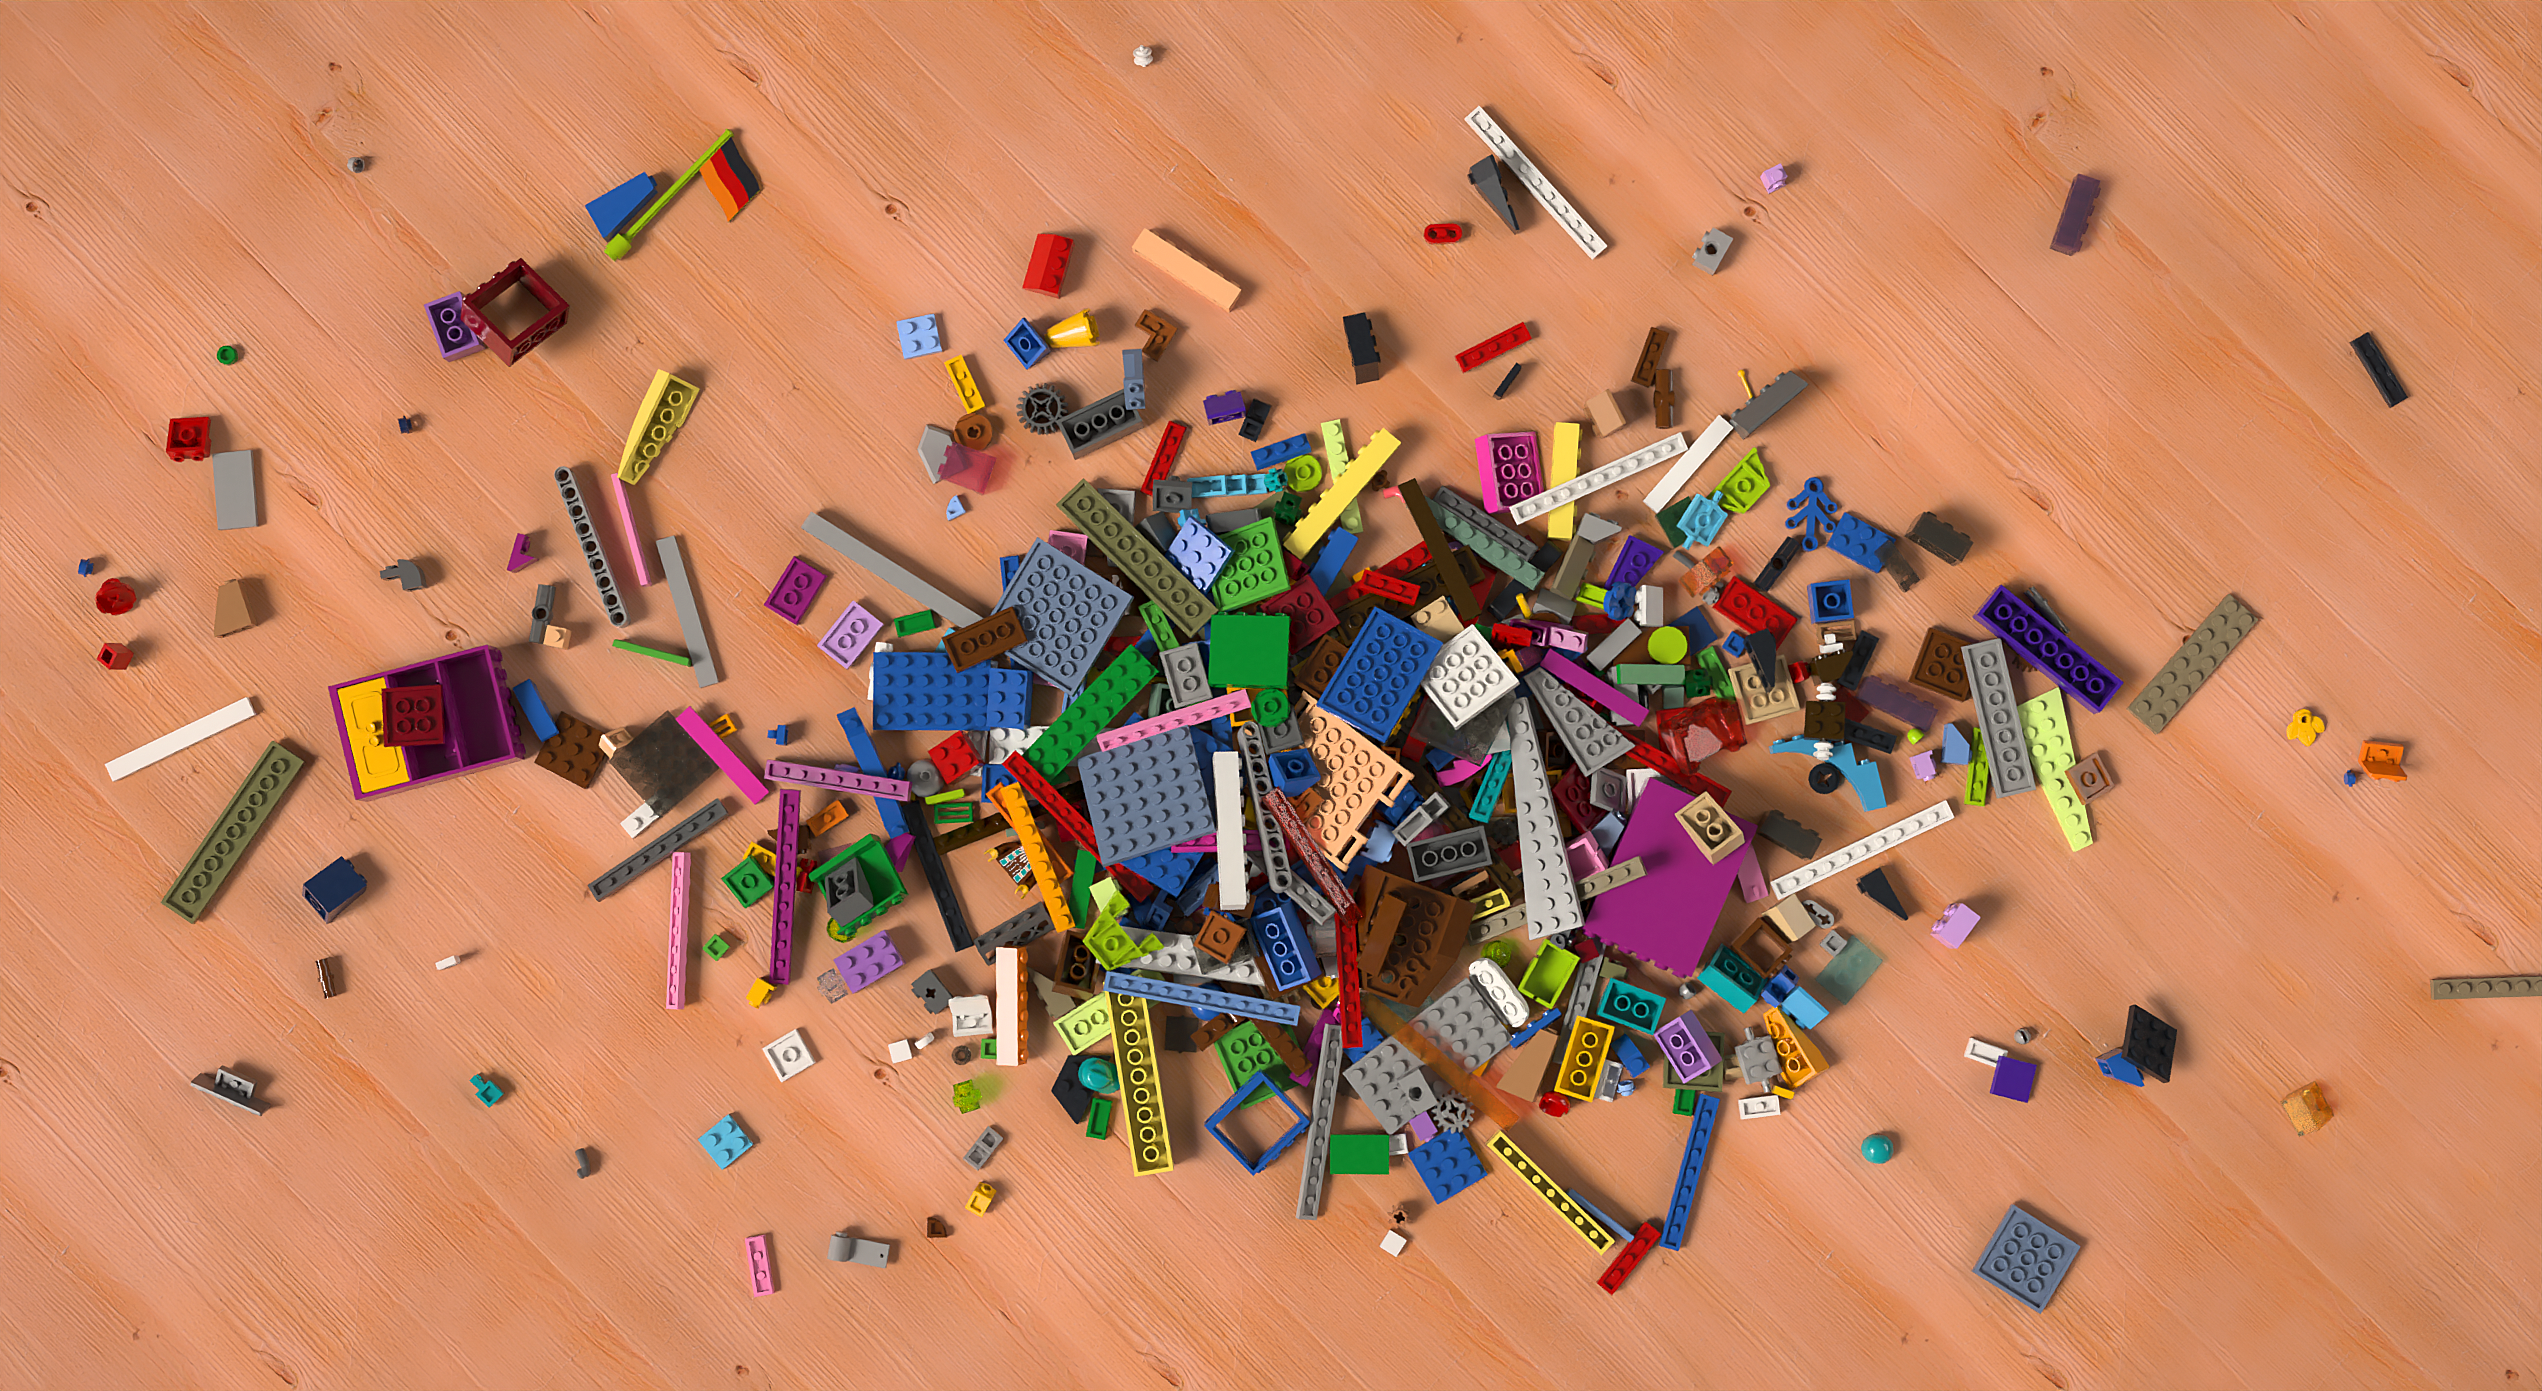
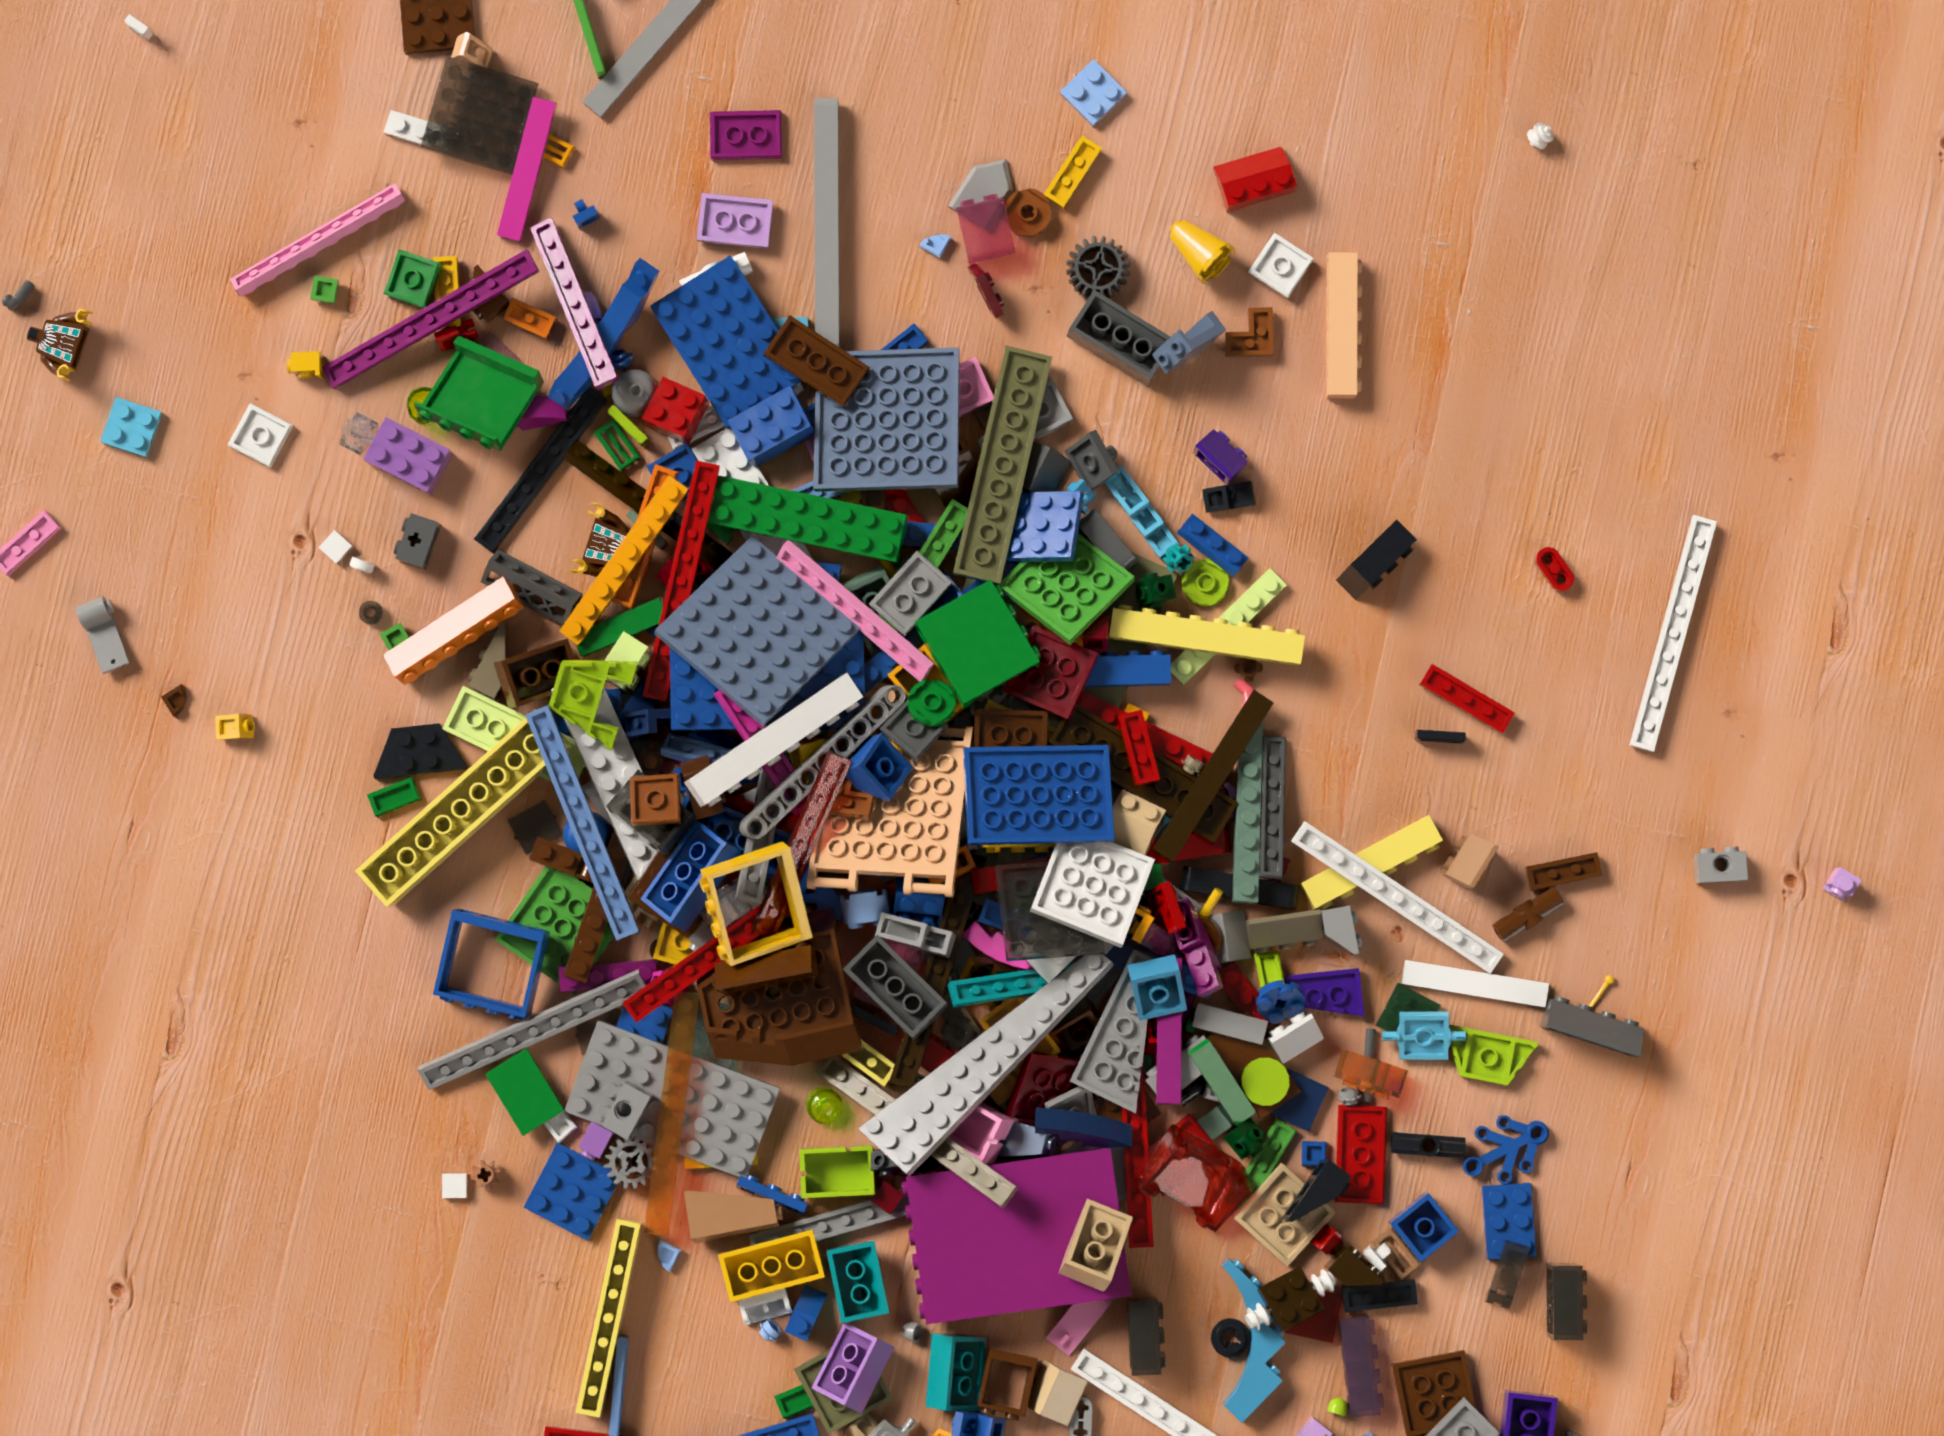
camera: 60 degrees right, 0 degrees up
(488, 1092) = (31, 153): teal plate -> none
(635, 1153) = (61, 342): none -> torso
(658, 850) = (388, 166): dark grey plate -> none
(848, 893) = (463, 387): dark grey slope -> none
(914, 623) = (789, 279): green tile -> none
(966, 1096) = (330, 644): clear neon green brick -> none
(971, 1015) = (417, 596): white bracket -> none
(982, 1148) = (288, 696): light grey slope -> none
(1005, 493) = (984, 284): none -> dark red wing
(1026, 344) = (1156, 208): blue slope -> none
(1099, 1075) = (437, 767): teal piece -> none
(1119, 285) = (1280, 265): none -> white plate
(1164, 456) = (1131, 426): red tile -> none
(1344, 883) = (794, 897): none -> yellow window
(1423, 559) = (1192, 765): none -> dark tan plate
(1472, 886) = (878, 1033): medium nougat tile -> none
(1487, 181) = (1641, 579): black wedge -> none
(1498, 992) = (785, 1132): white tile -> none
(1508, 469) = (1346, 796): dark pink slope -> none
(1530, 1125) = (667, 1254): none -> light blue tile
(1554, 1103) = (705, 1264): red hair -> none
(1560, 677) = (1157, 987): none -> dark azure slope
(1613, 970) = (885, 1239): olive brick -> none
(1622, 787) = (1085, 1127): none -> dark blue slope
(1869, 736) = (1305, 1357): black plate -> none

